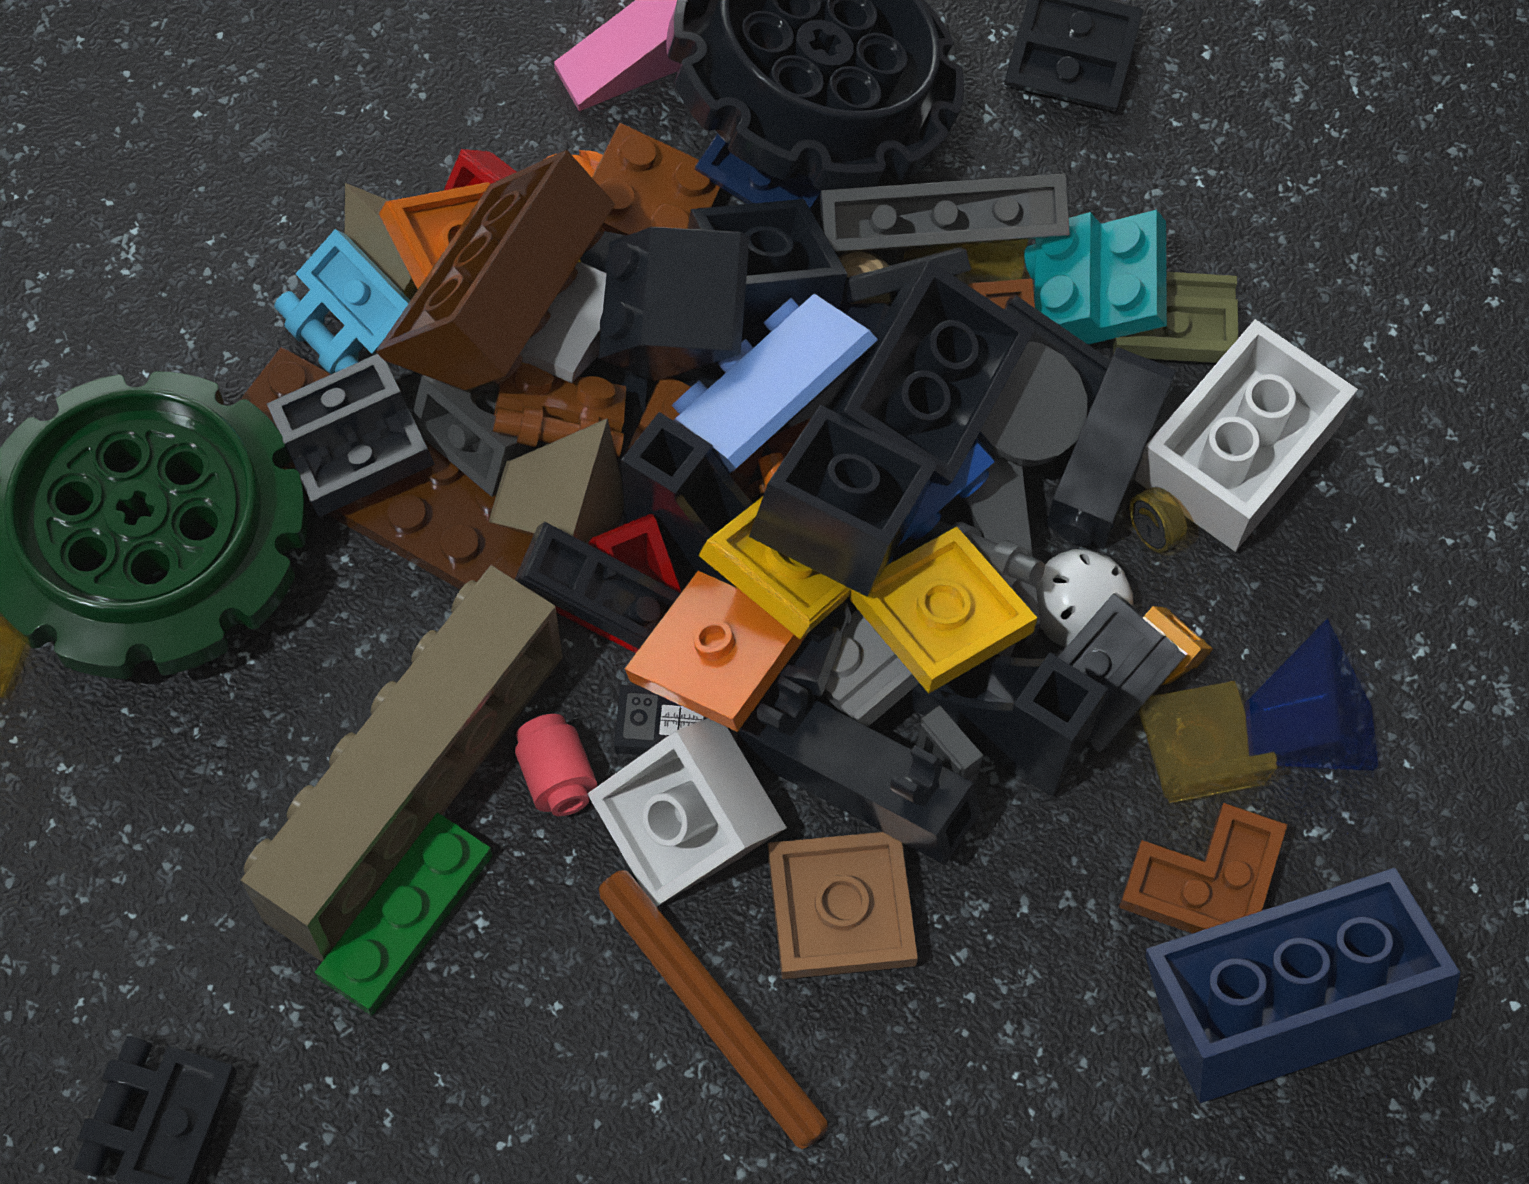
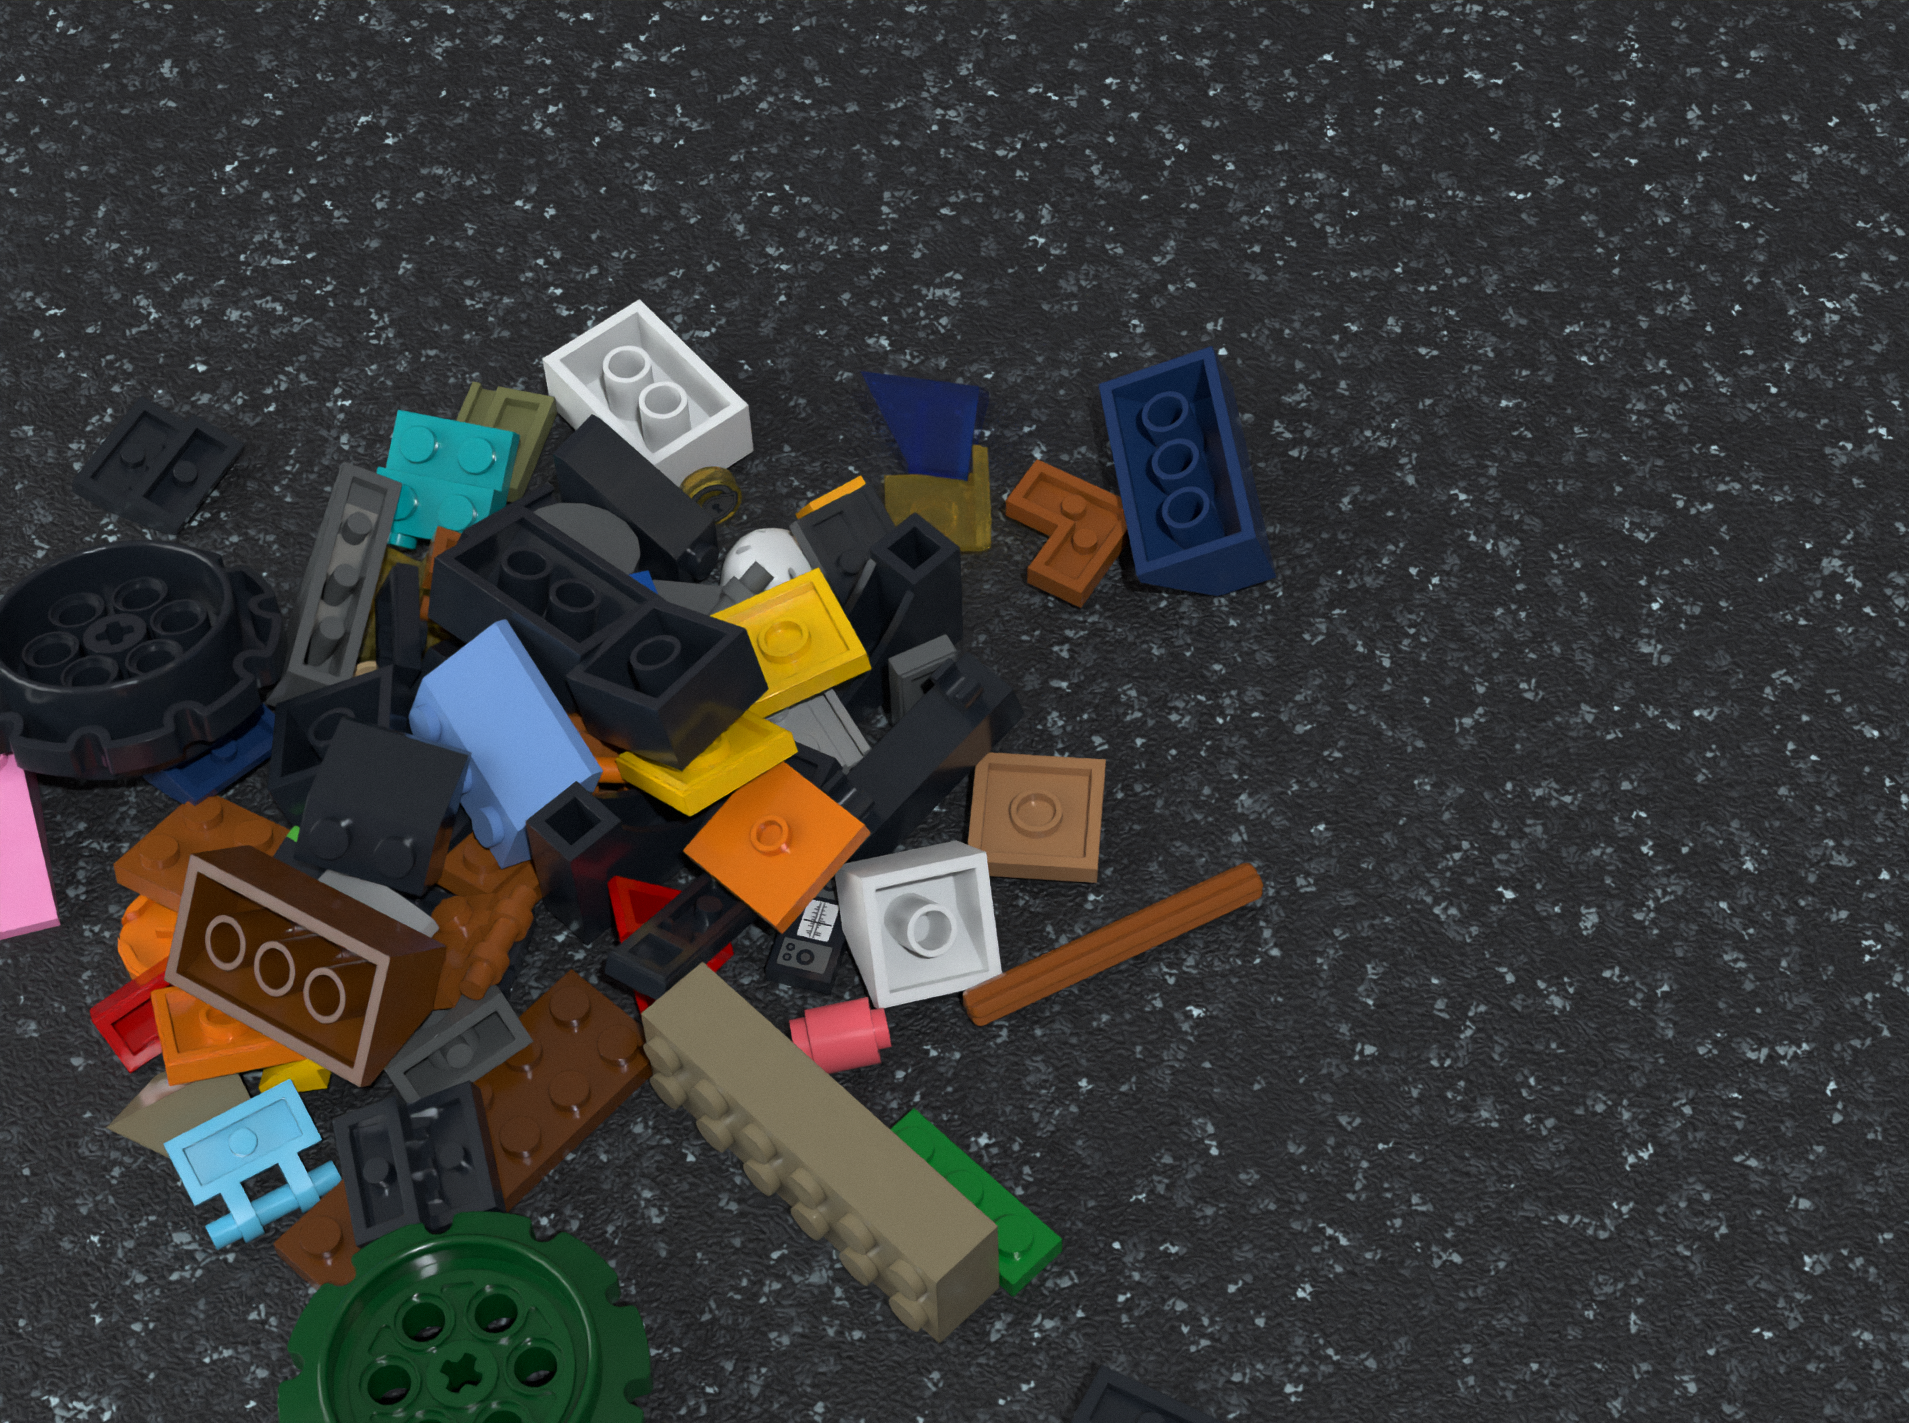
camera: 75 degrees left, 10 degrees down
(564, 483) = (555, 962): dark tan slope -> none

